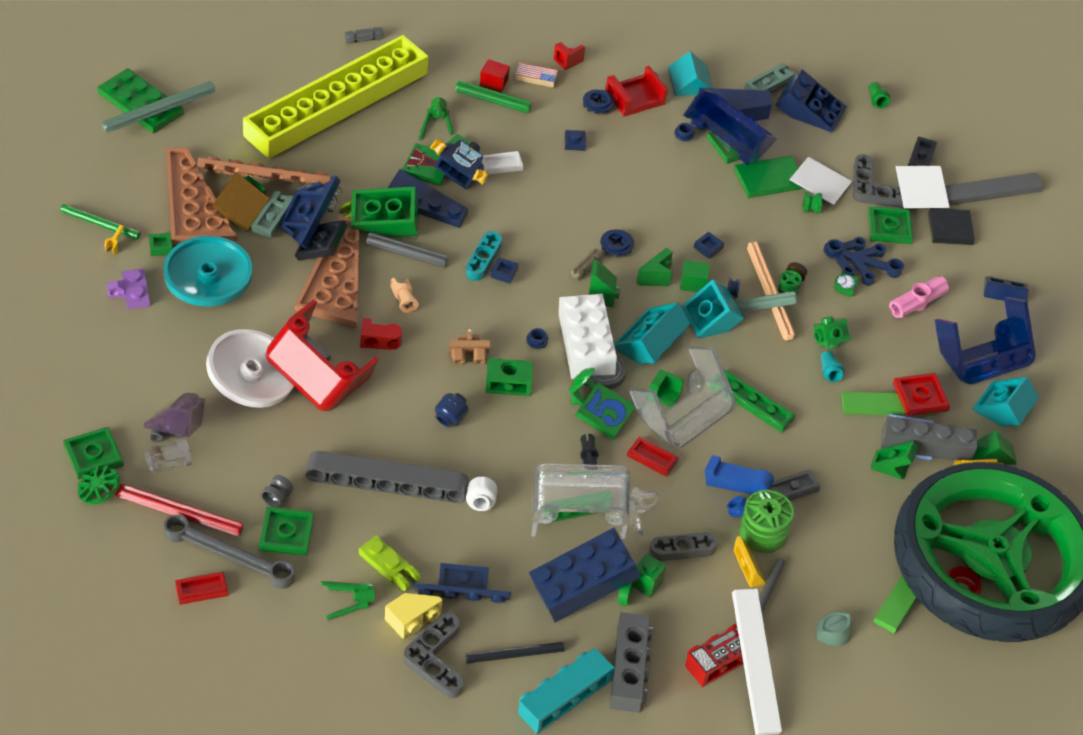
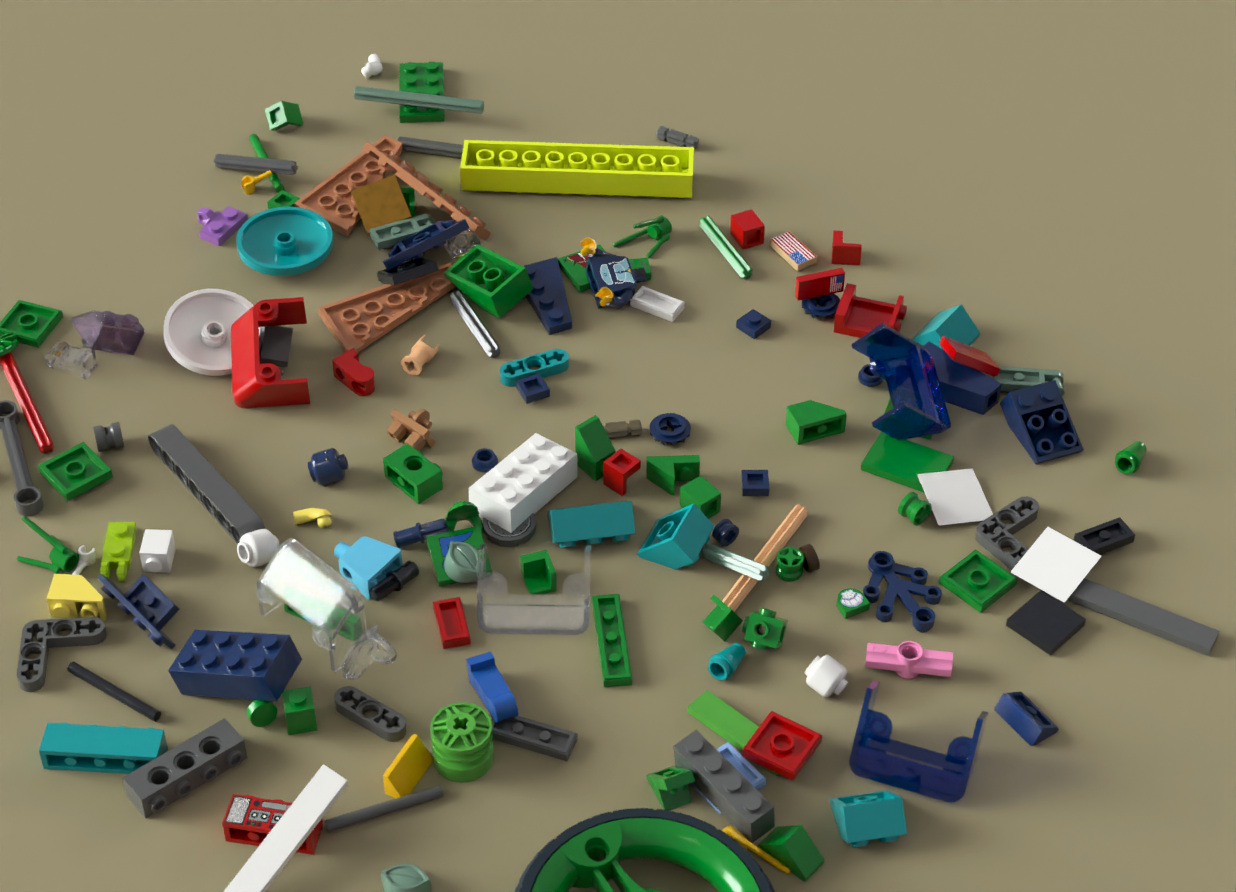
camera: 50 degrees right, 5 degrees down
(68, 177) = (283, 114): none -> green panel
(80, 99) = (373, 67): none -> white arm
(100, 226) = (255, 164): none -> dark grey axle
(212, 136) = (431, 147): none -> dark grey axle
(377, 587) = (85, 559): none -> white hand
(420, 543) = (157, 550): none -> white brick
(481, 447) = (313, 514): none -> light yellow arm
(559, 449) = (367, 562): none -> medium azure torso
(566, 412) = (419, 532): none -> dark blue axle
(593, 87) = (819, 284): none -> red tile
(619, 412) = (461, 562): none -> sand green hat
(631, 289) = (618, 469): none -> red panel
(691, 183) = (814, 421): none -> green slope
(731, 83) = (969, 356): none -> red tile
(800, 342) = (722, 619): none -> green panel
(892, 337) = (826, 676): none -> white head

